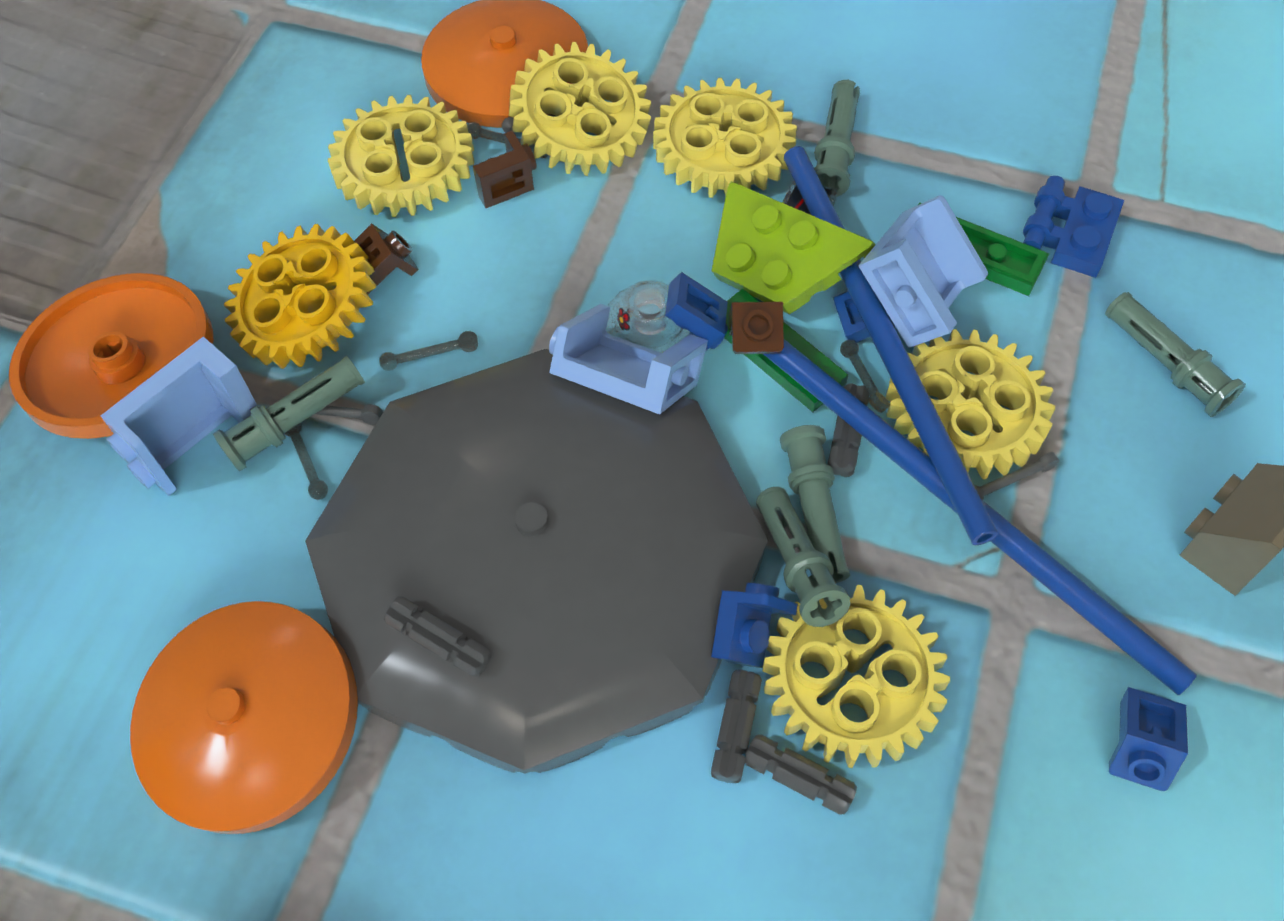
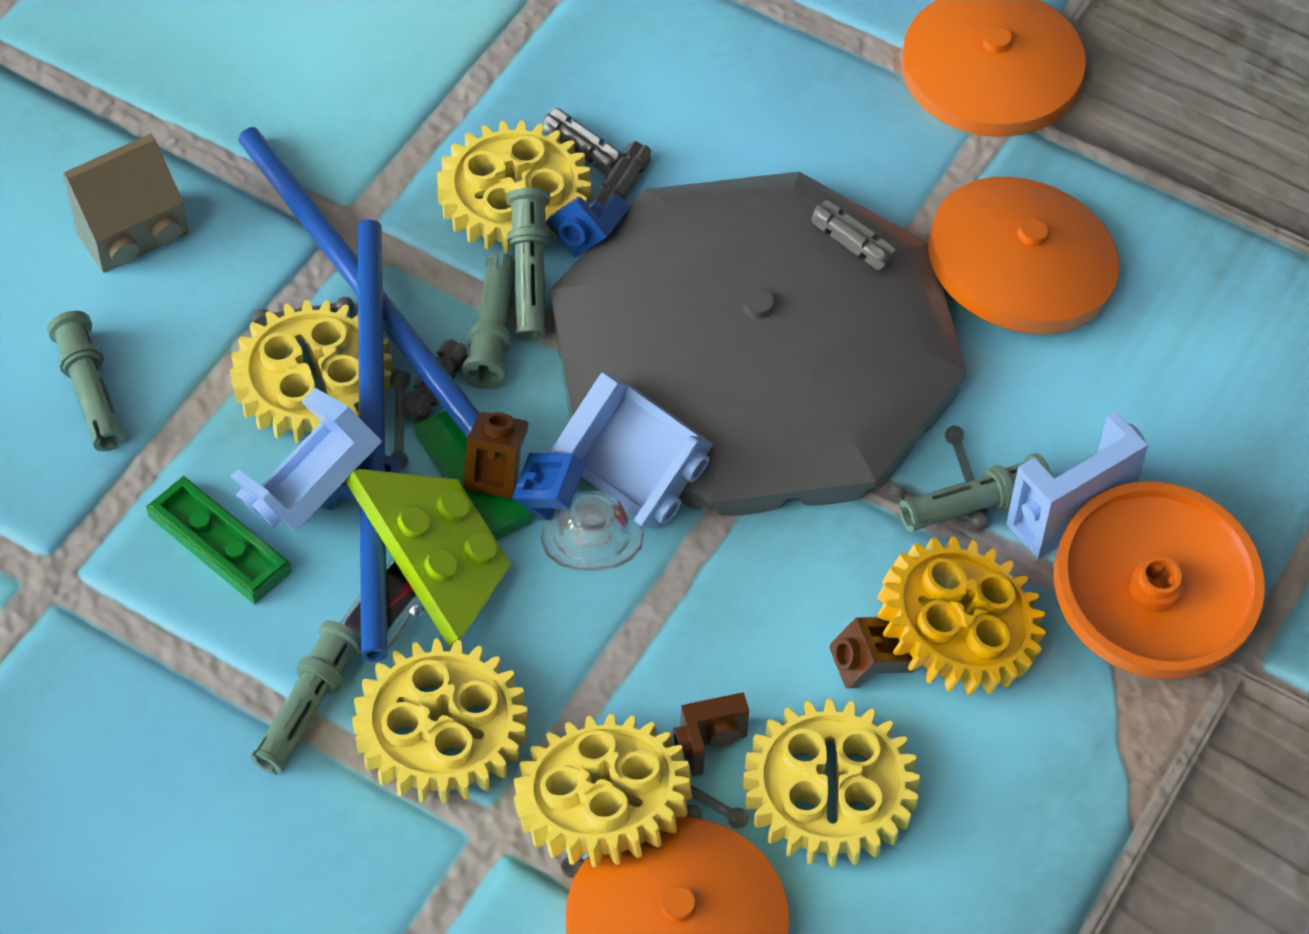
camera: 170 degrees left, 5 degrees down
(467, 342) = (788, 555): clear smoke hinge -> none
(1087, 227) = (89, 529): blue plate -> none
(1150, 740) = (301, 103): blue bracket -> none

